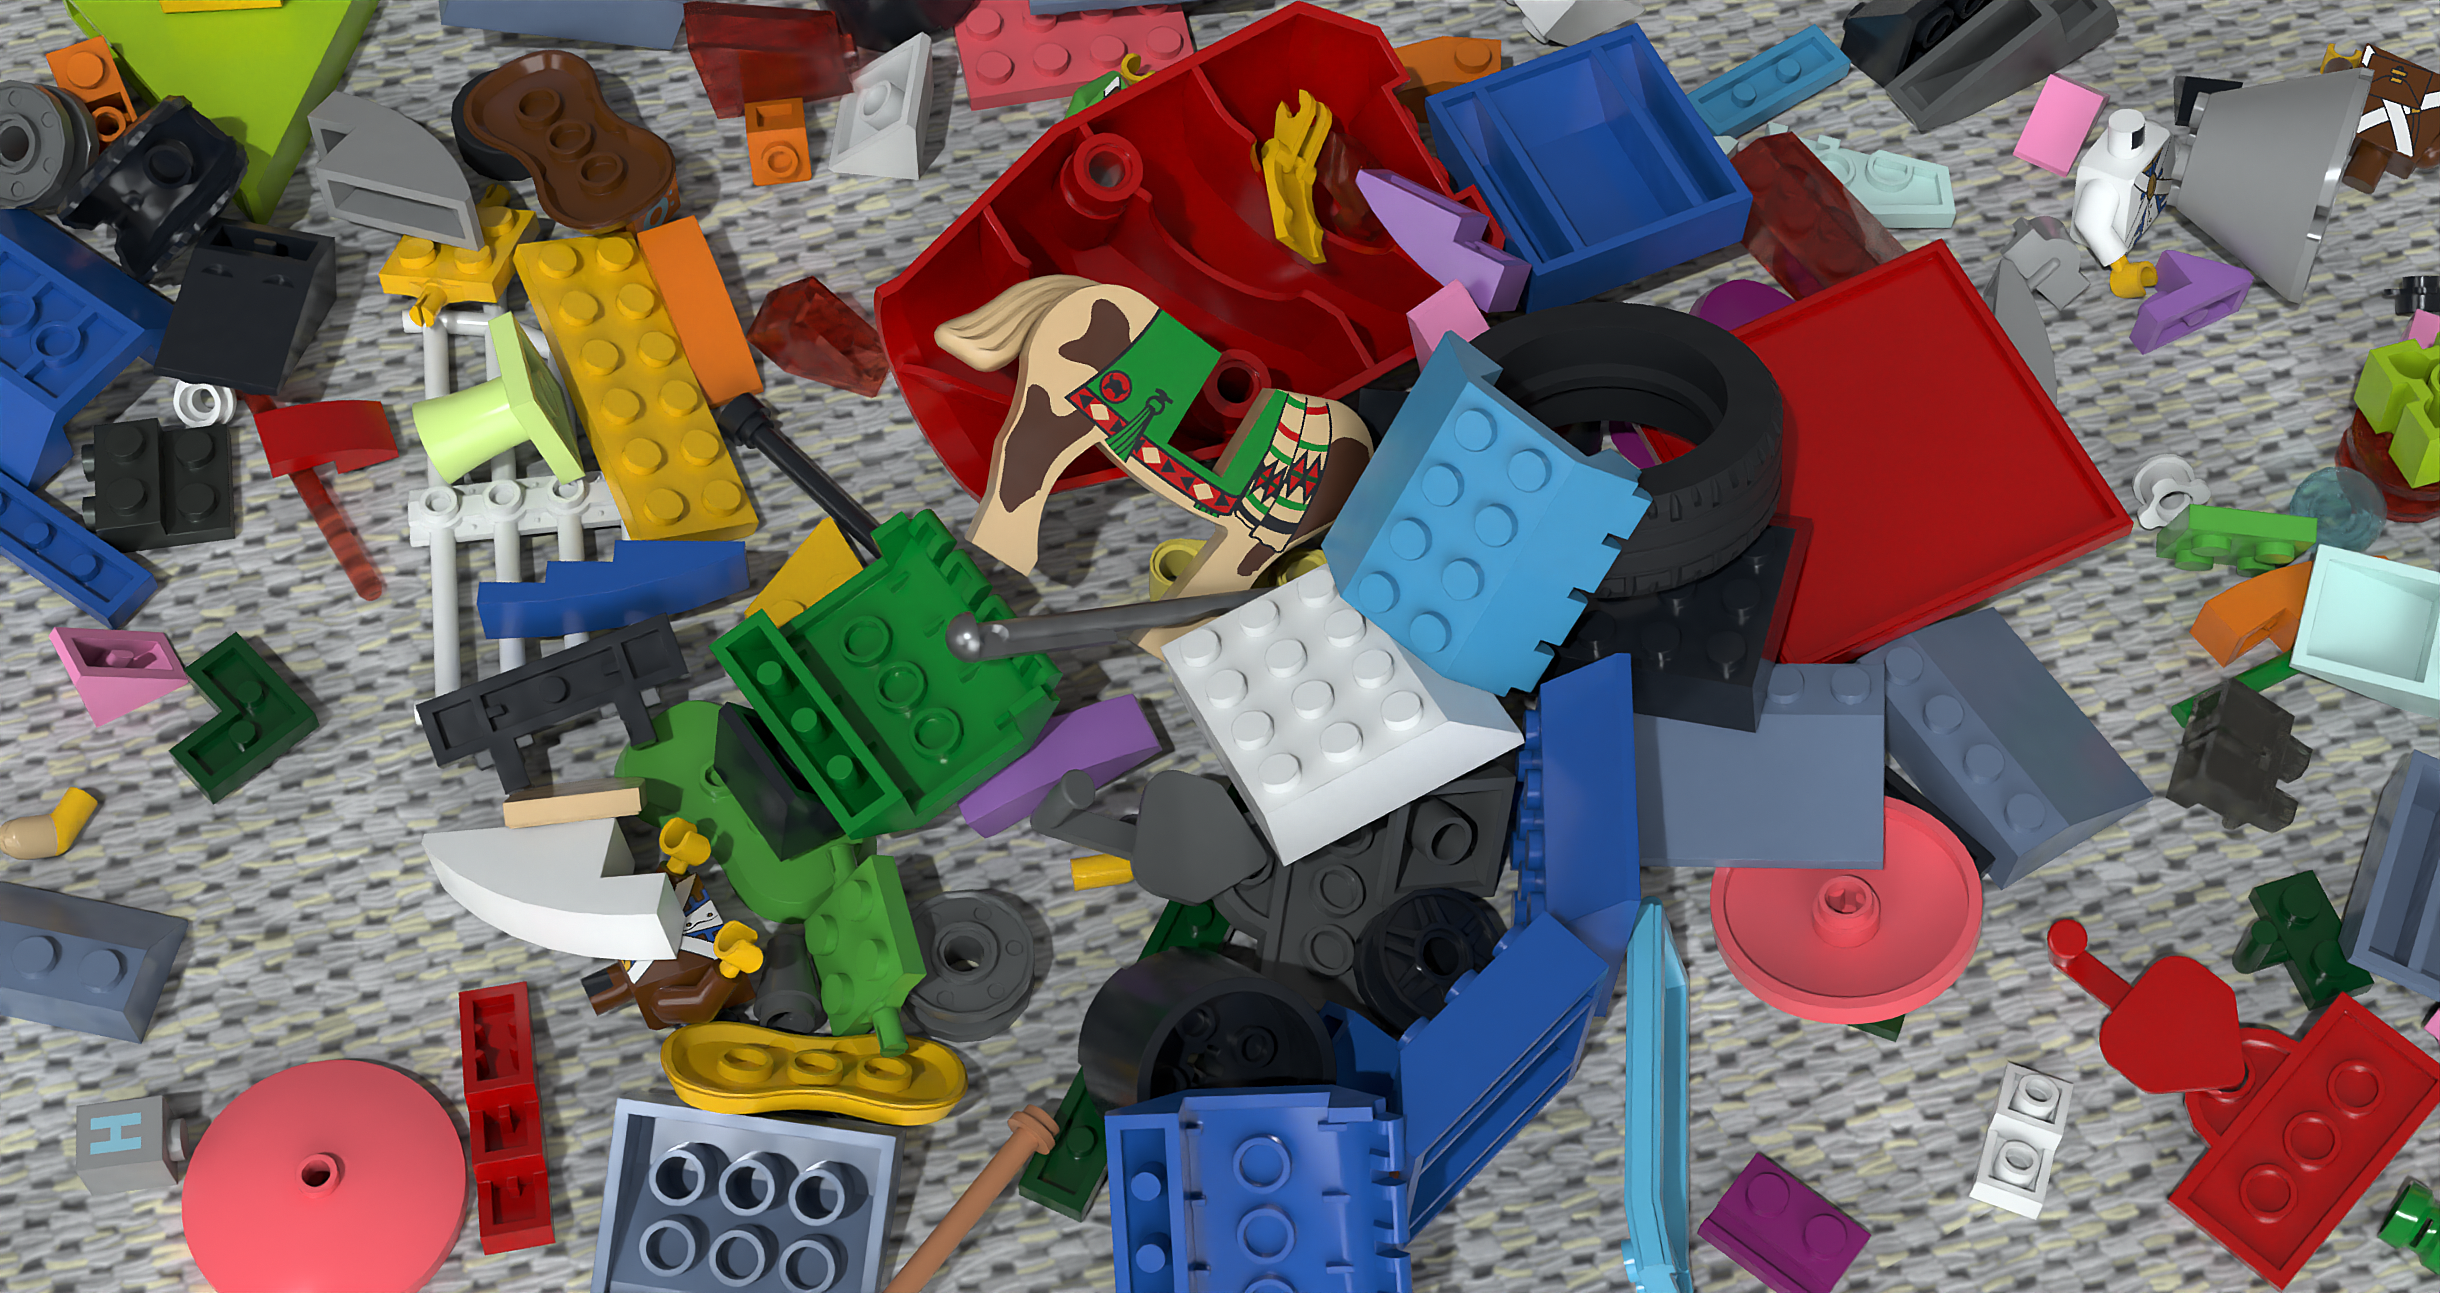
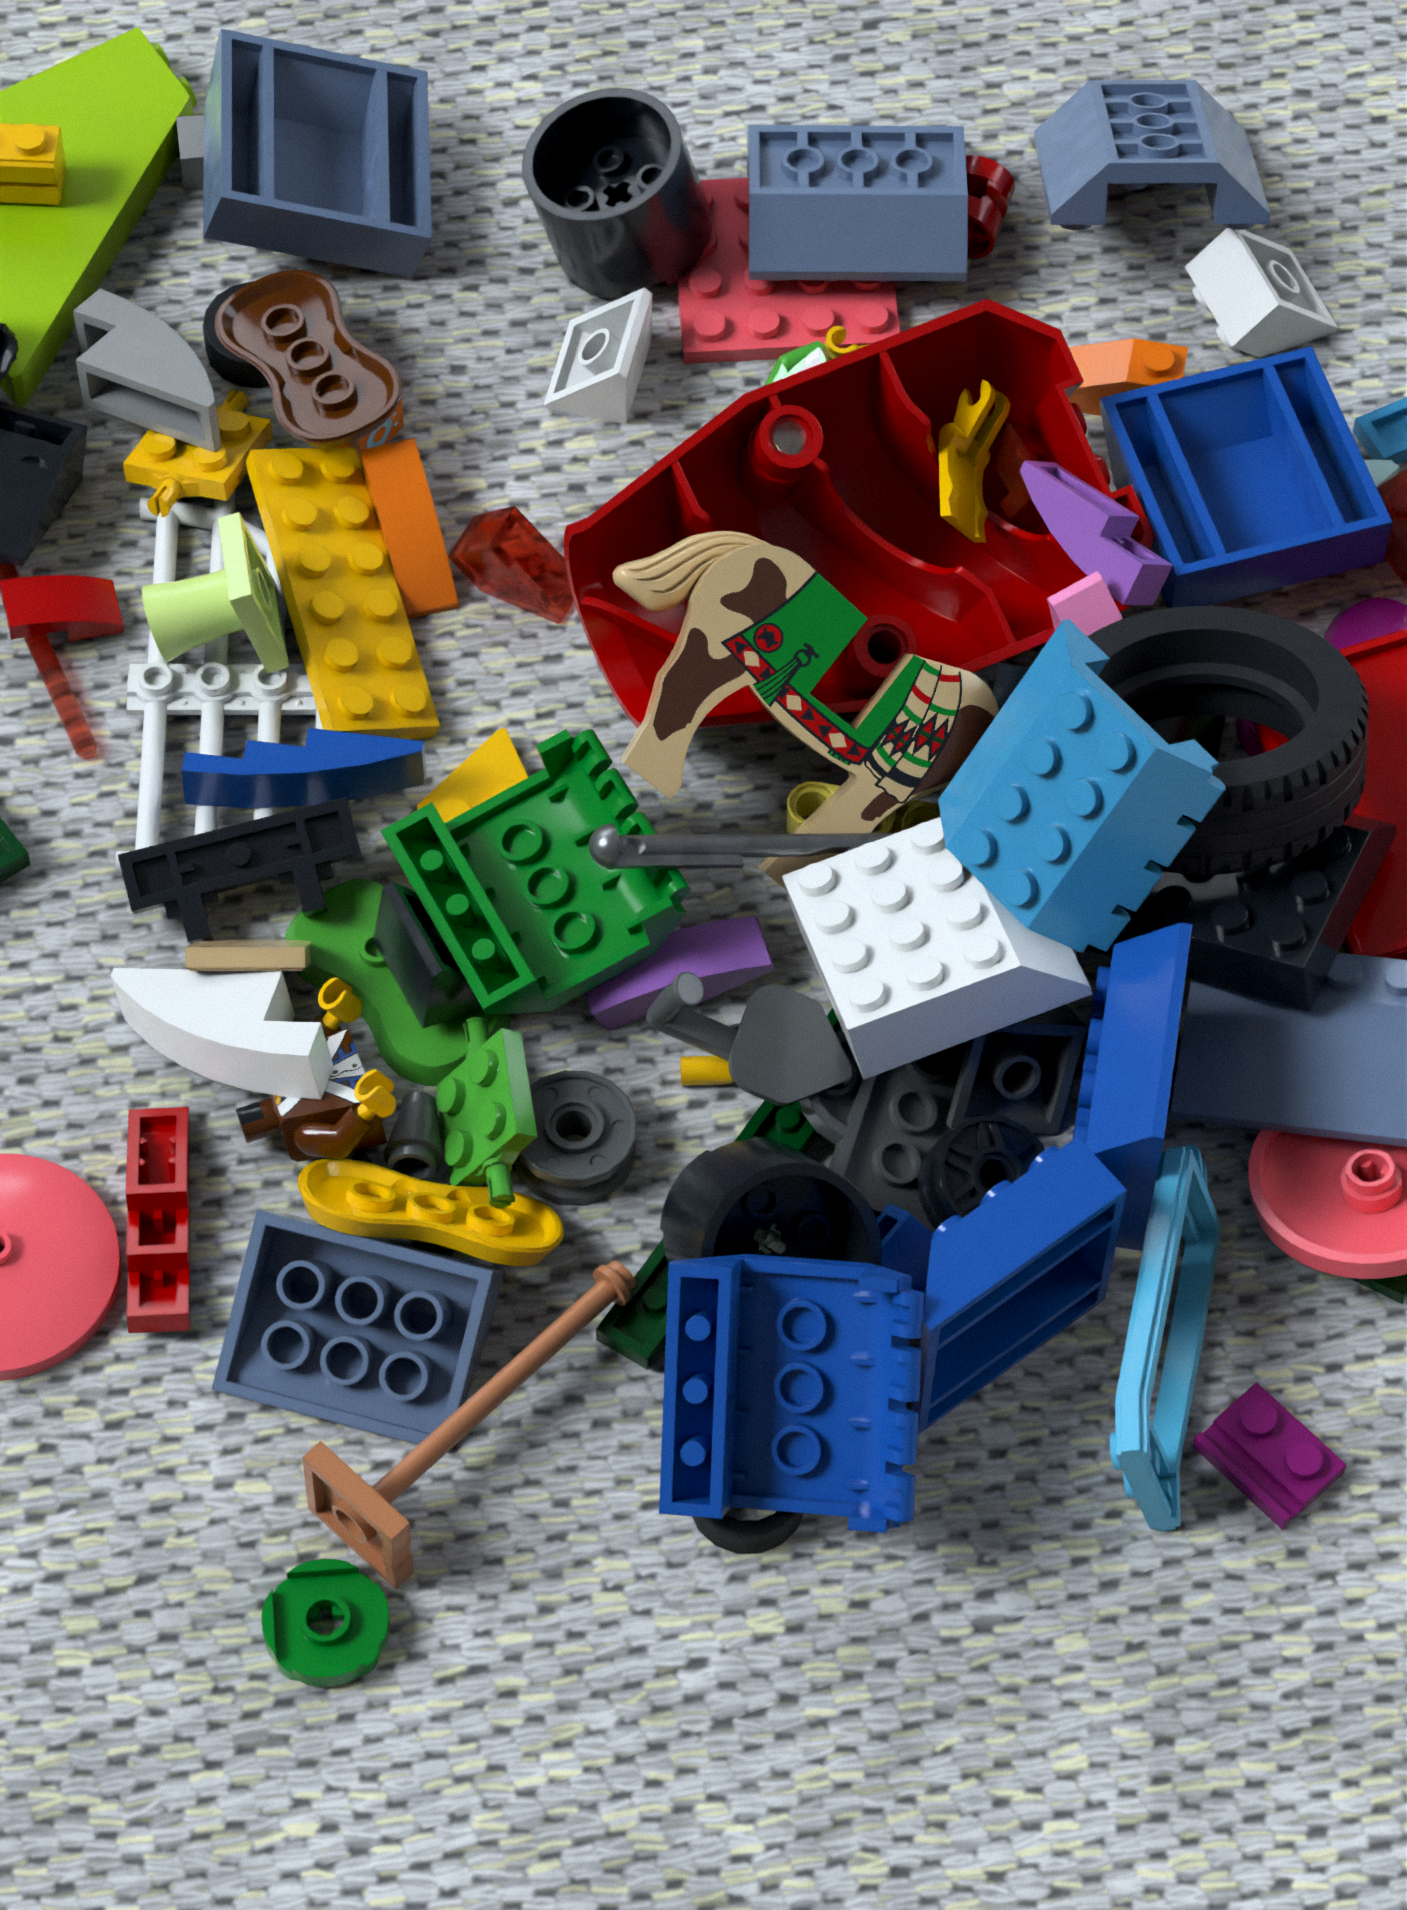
camera: 10 degrees right, 0 degrees up
(749, 424) = (442, 635): black piece -> none
(768, 54) = (500, 294): clear red slope -> none
(777, 141) = (499, 375): orange bracket -> none

